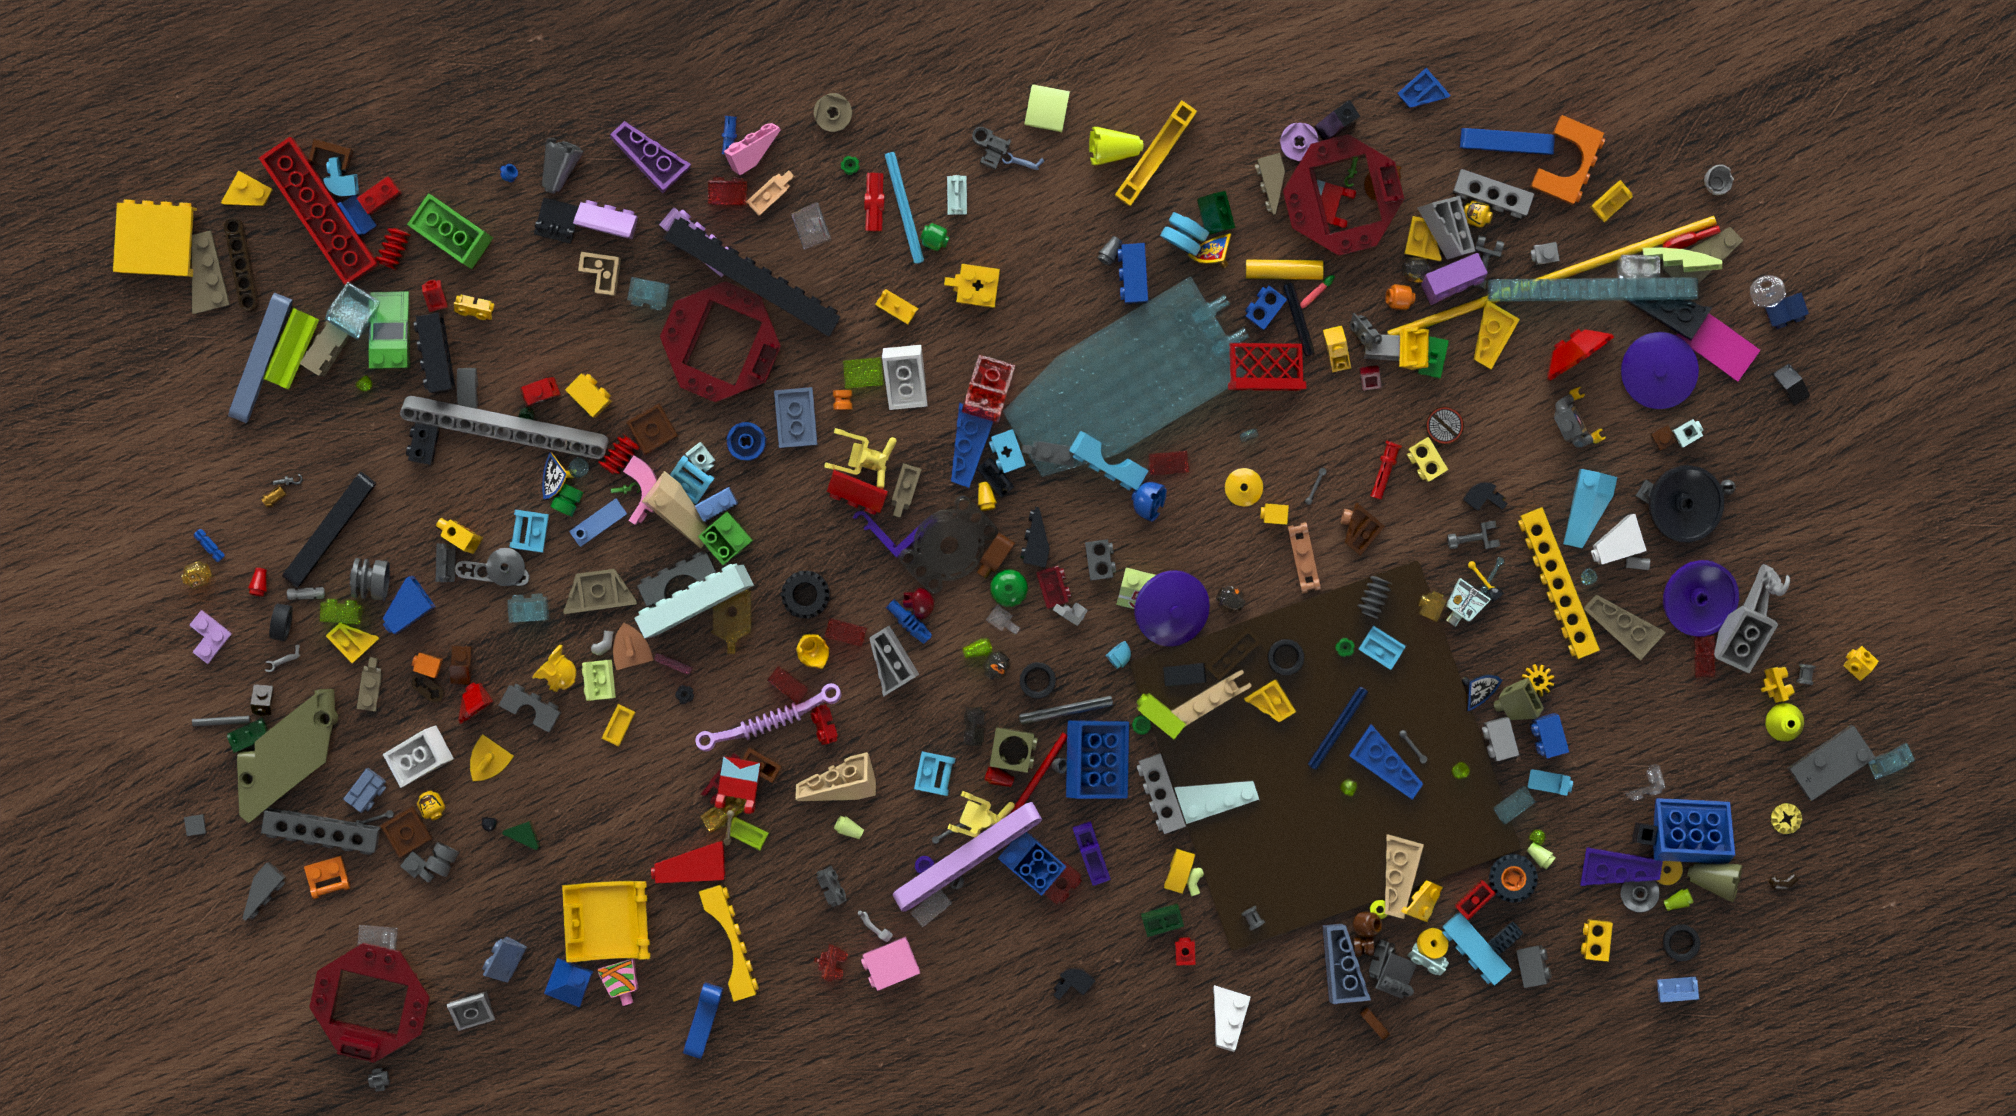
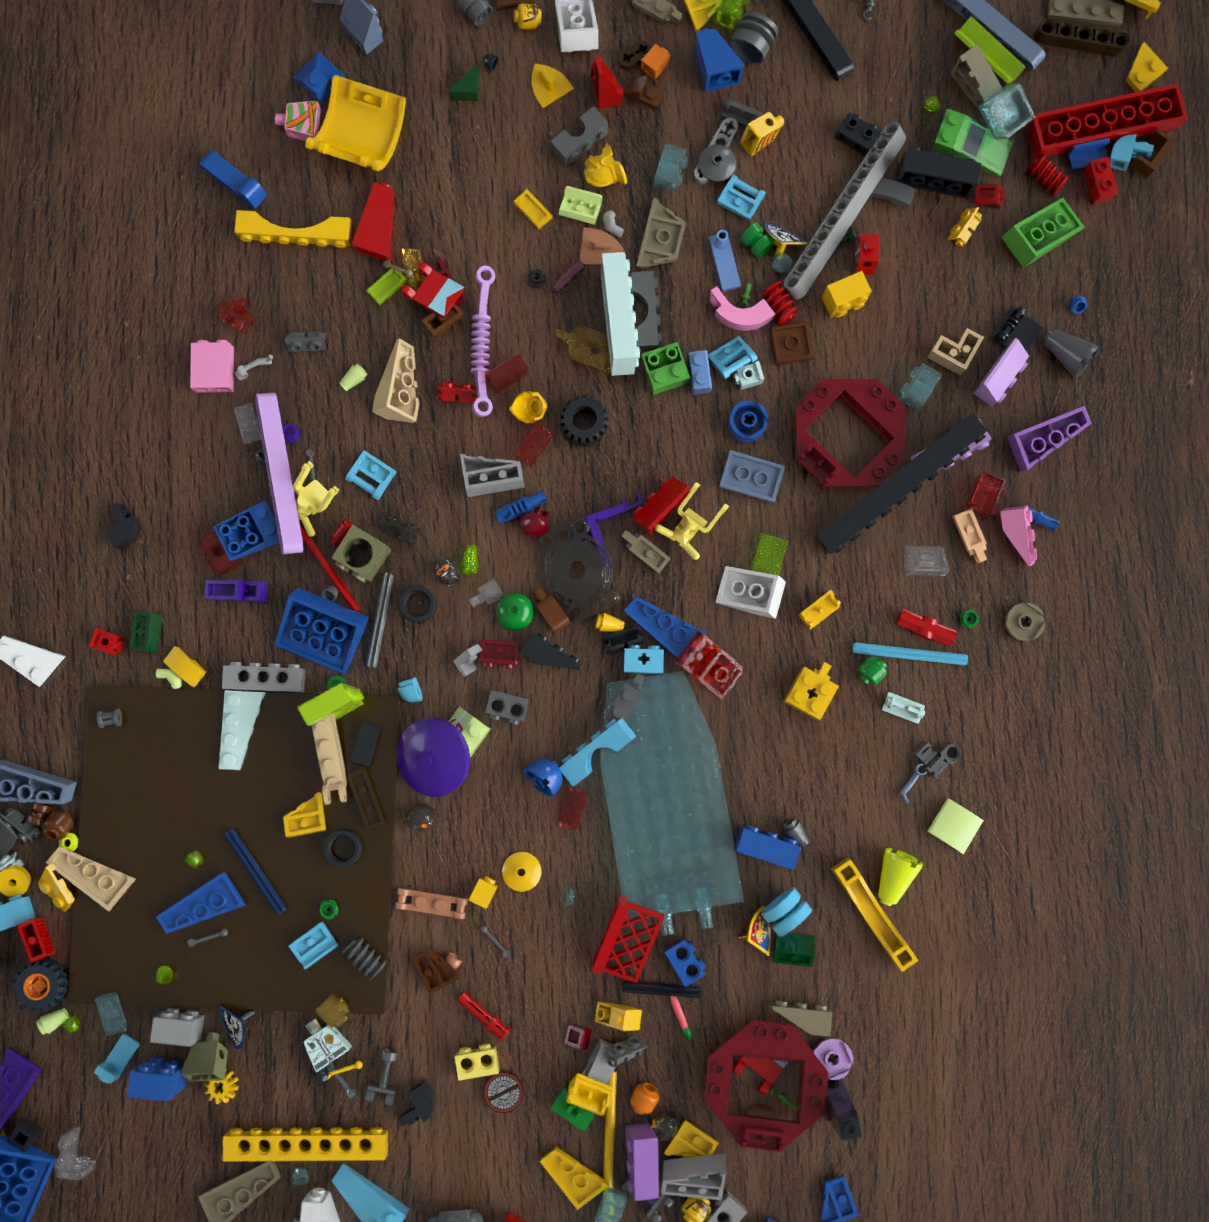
camera: 100 degrees right, 5 degrees down
(673, 505) = (712, 333): tan wedge -> none
(842, 404) = (747, 525): orange wheel -> none
(1284, 269) = (714, 994): yellow brick -> none

